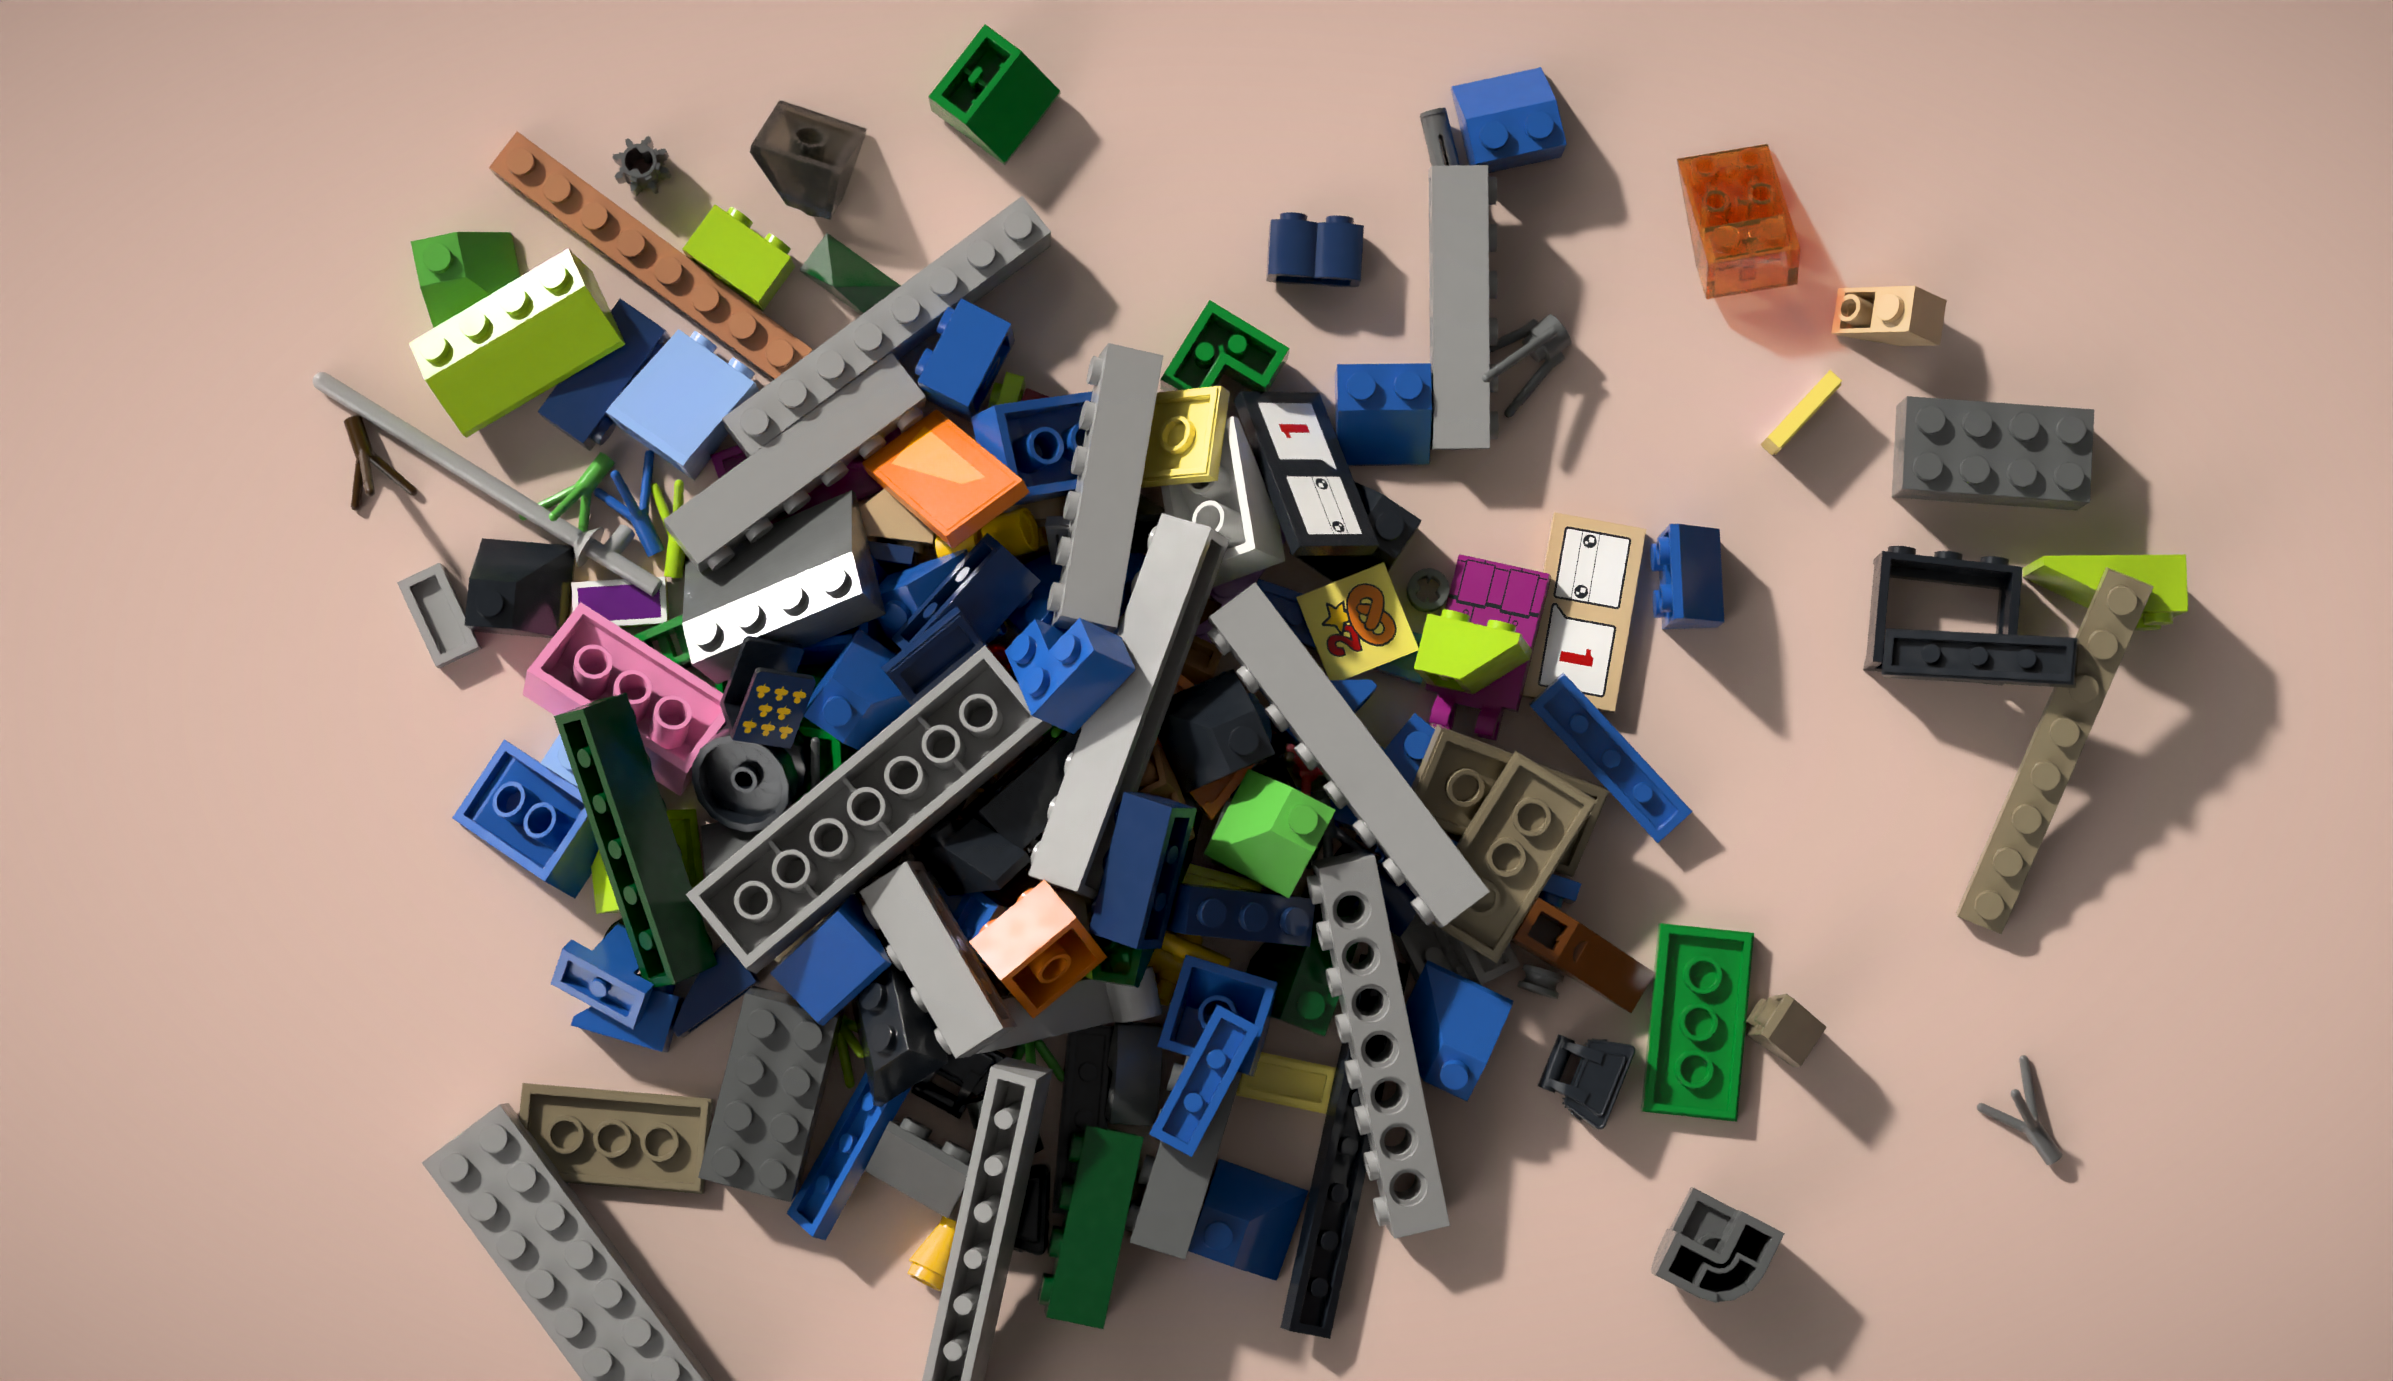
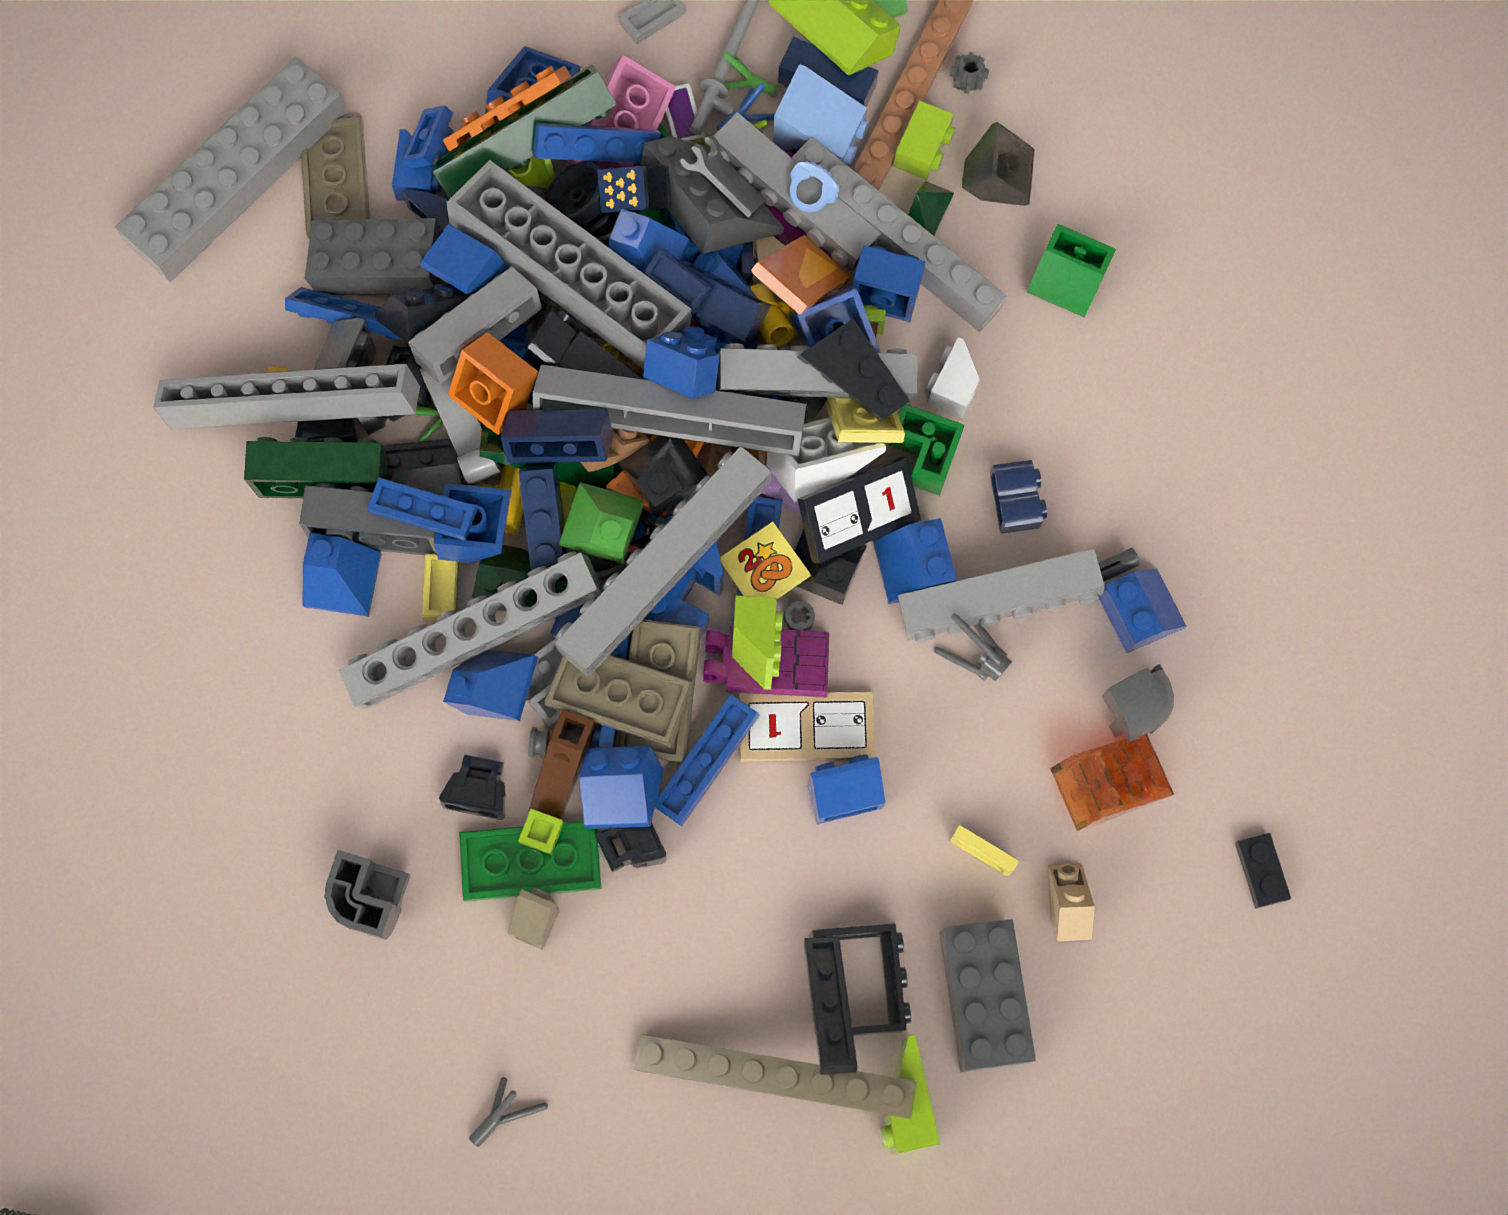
camera: 80 degrees right, 10 degrees down
(520, 588) = (678, 50): black slope -> none
(589, 857) = (500, 109): none -> orange wing
(671, 738) = (591, 142): none -> blue plate
(773, 557) = (724, 177): none -> dark grey flag
(784, 441) = (803, 171): none -> light blue piece
(1121, 431) = (857, 369): none -> black wing
(1126, 295) = (957, 381): none -> white slope
(1332, 1197) = (364, 629): black plate -> none
(1634, 880) = (619, 786): none -> slope
(1646, 155) = (1140, 703): none -> dark grey brick
(1670, 998) = (541, 831): none -> lime plate
(1698, 871) = (640, 843): none -> black piece
(1891, 54) = (1262, 870): none -> black plate

